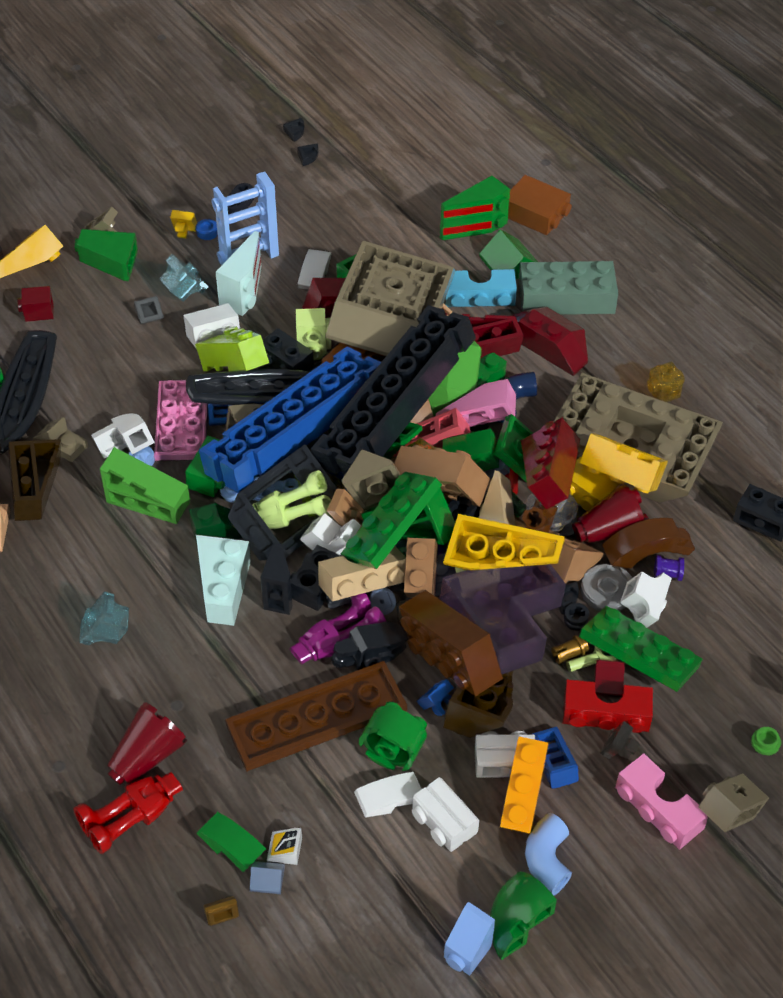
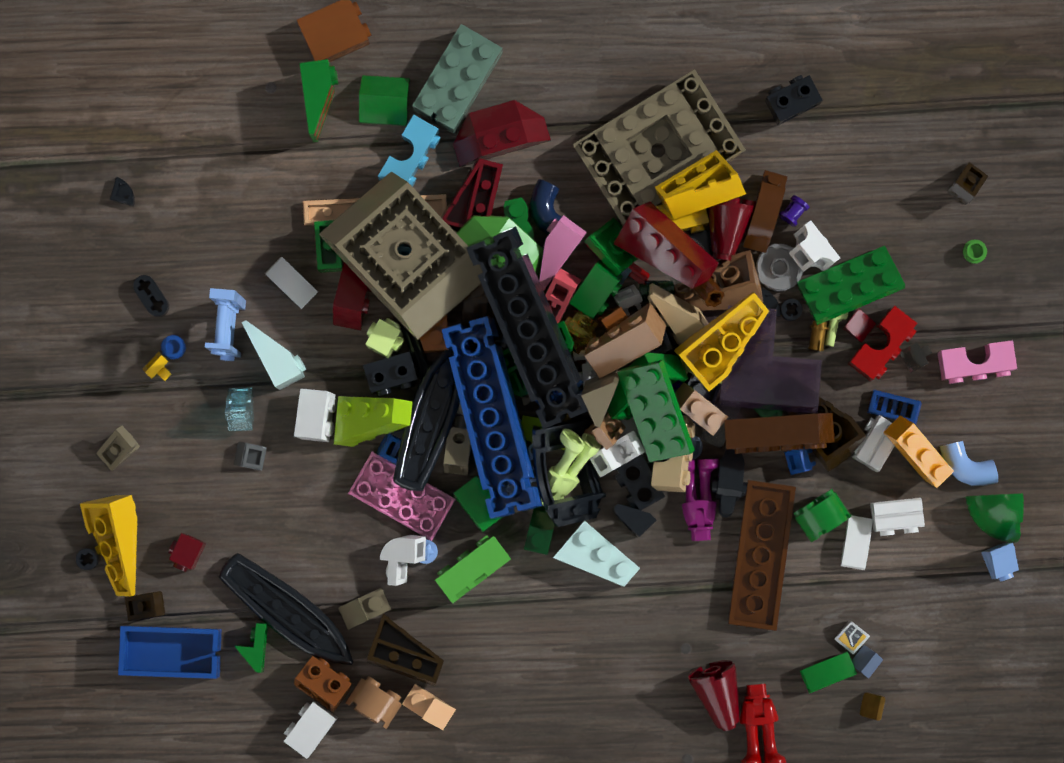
camera: 60 degrees left, 35 degrees up
(104, 621) = (587, 668): clear light blue brick -> none
(108, 251) = (155, 454): green slope -> none
(294, 129) = (77, 183): black tile -> none
(665, 382) = (612, 84): clear yellow brick -> none
(732, 802) = (1013, 316): dark tan brick -> none

